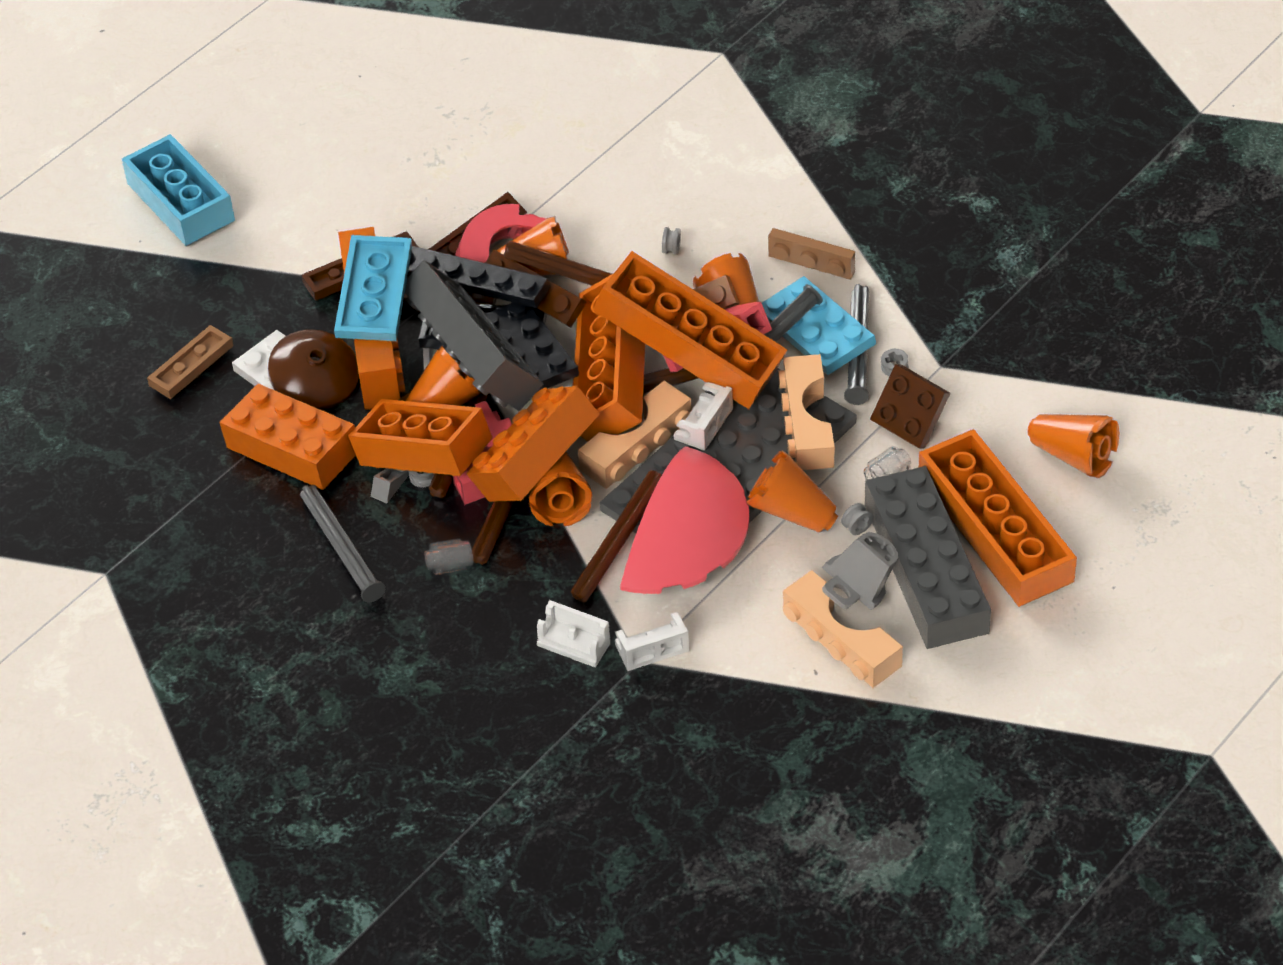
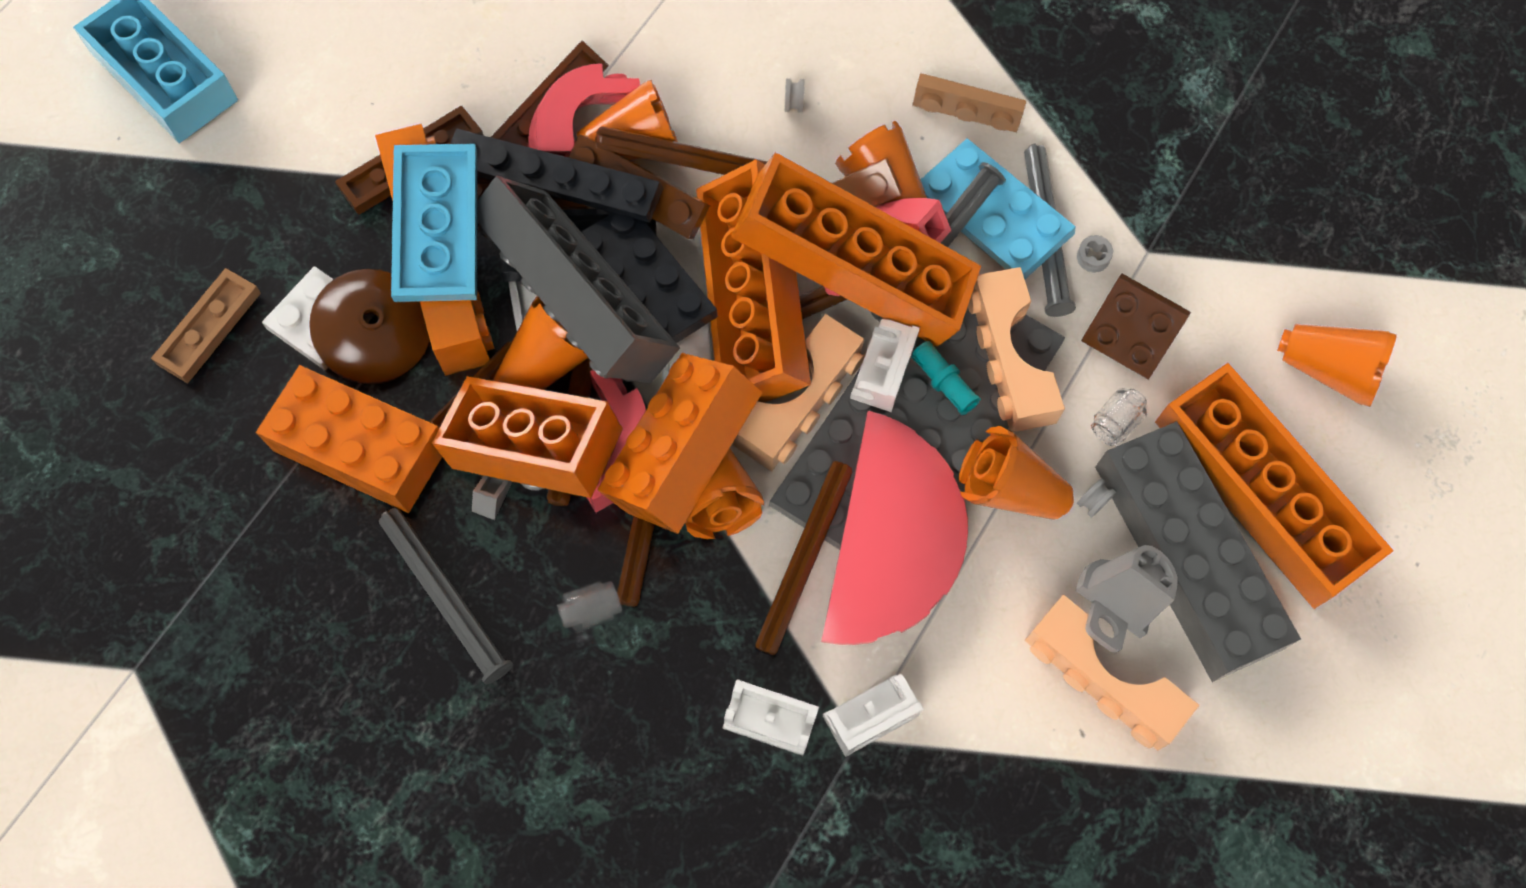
camera: 15 degrees left, 20 degrees up
(749, 427) = (945, 378): none -> teal pin

